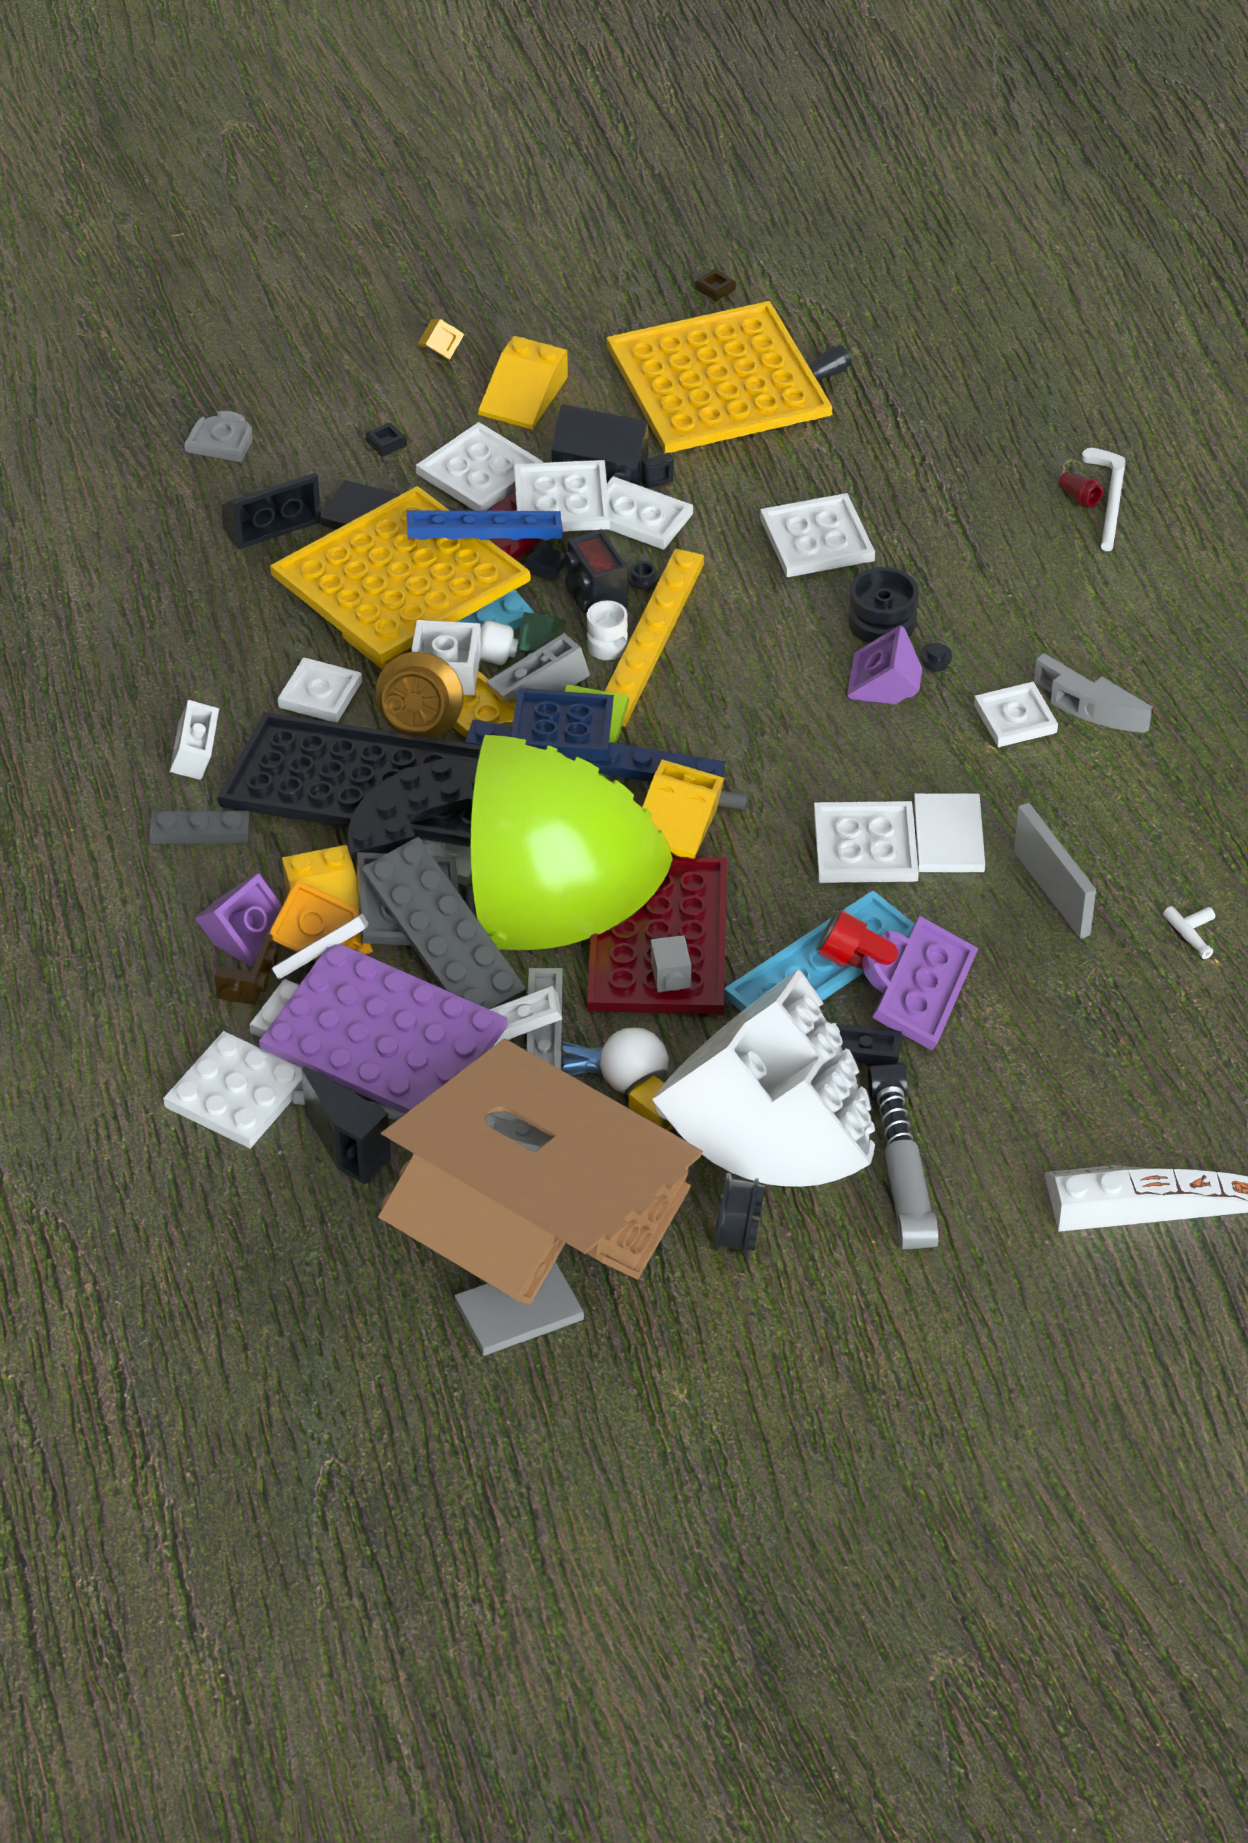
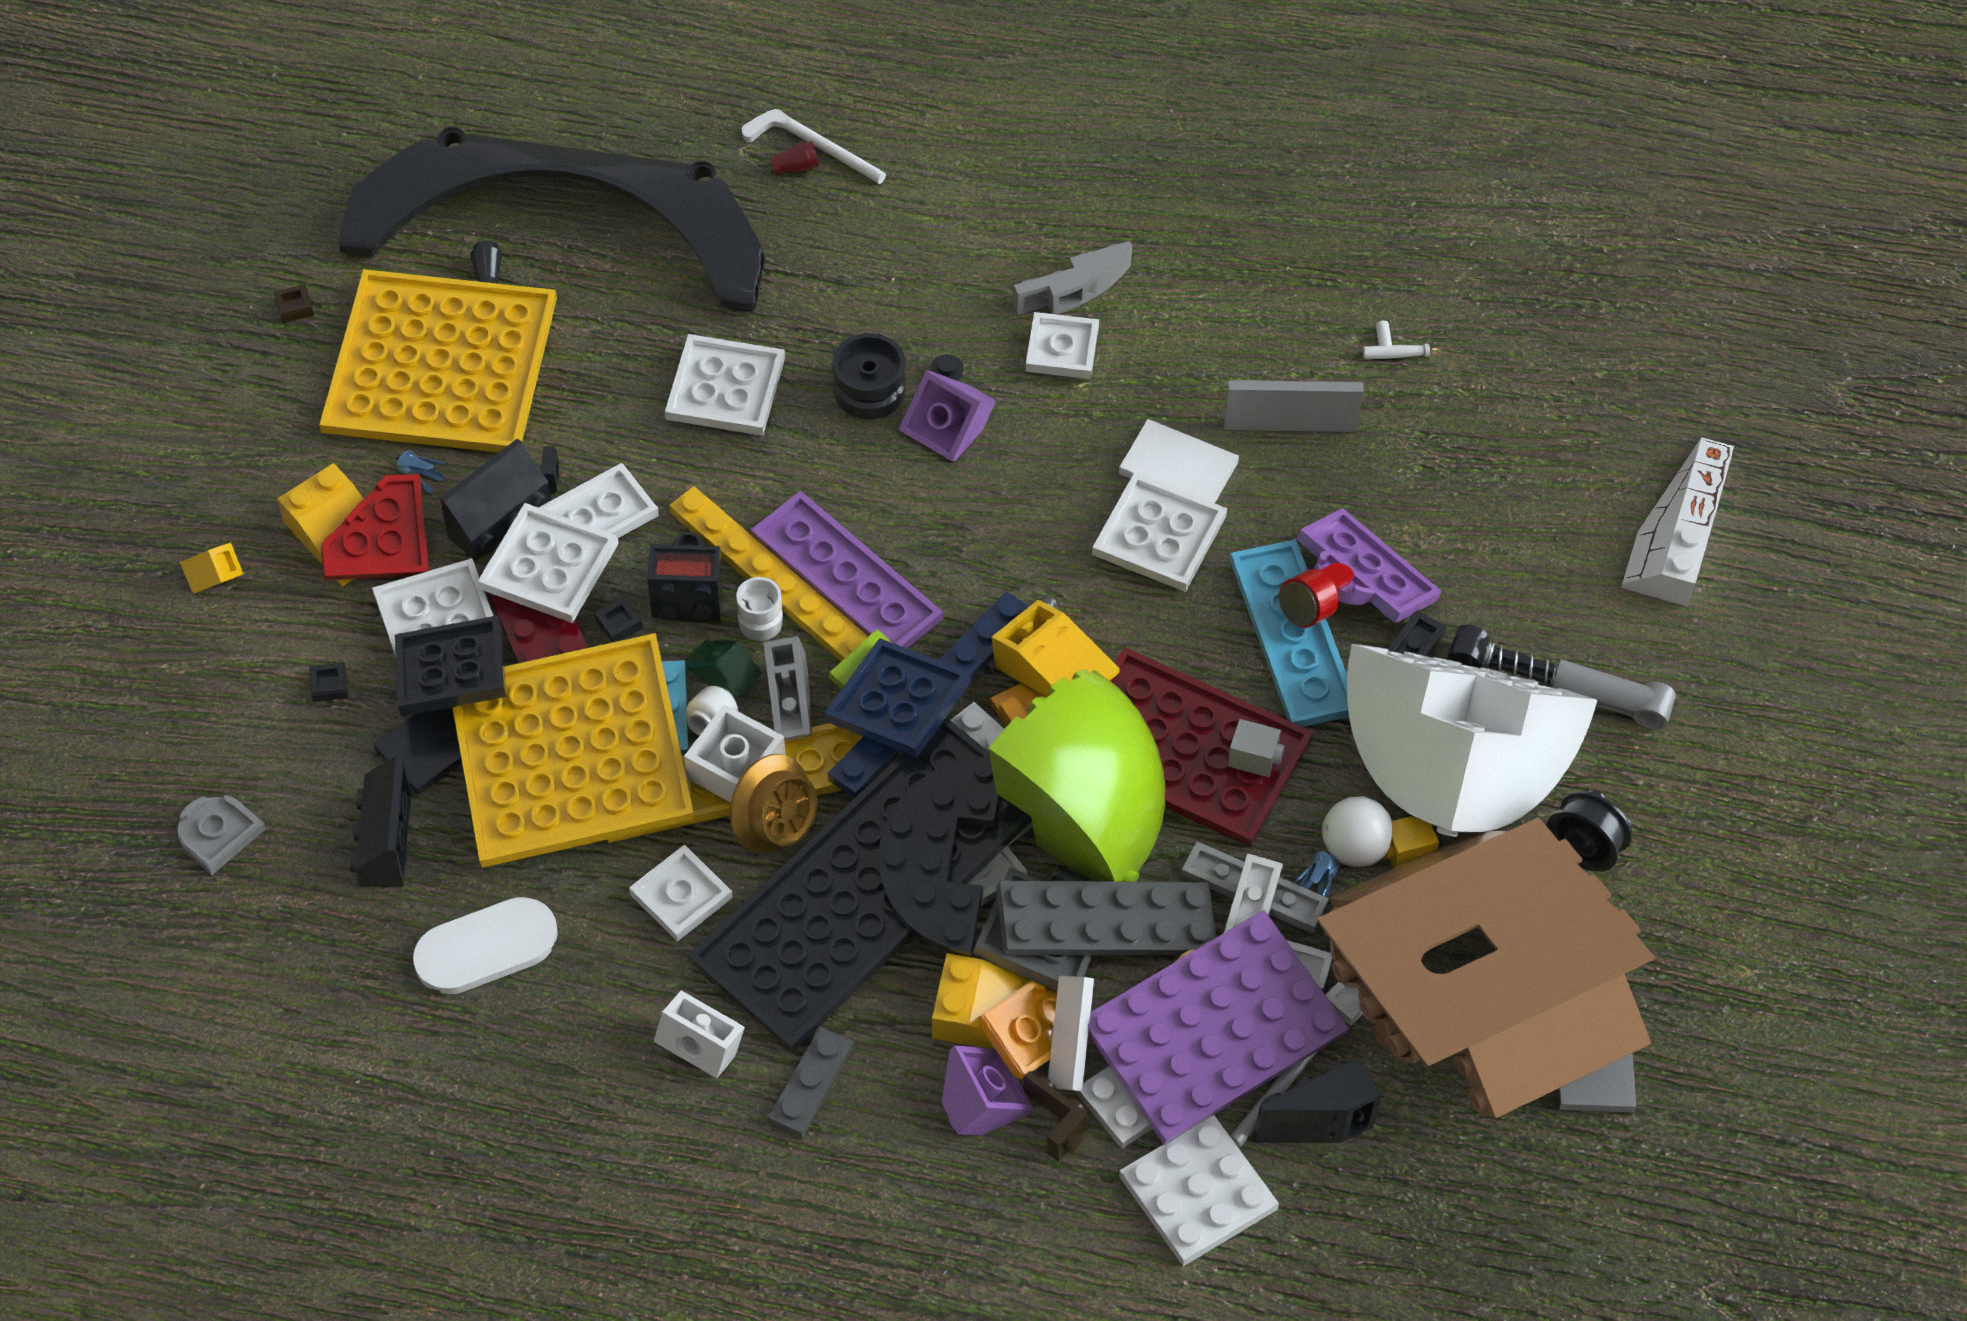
camera: 65 degrees left, 10 degrees up
(210, 607) = (485, 945): none -> white tile
(424, 477) = (450, 665): none -> black plate
(483, 524) = (566, 642): blue plate -> none
(525, 404) = (380, 534): none -> red plate
(608, 400) = (413, 464): none -> flat silver piece
(681, 672) = (846, 572): none -> medium lavender plate
(973, 418) = (431, 171): none -> black panel

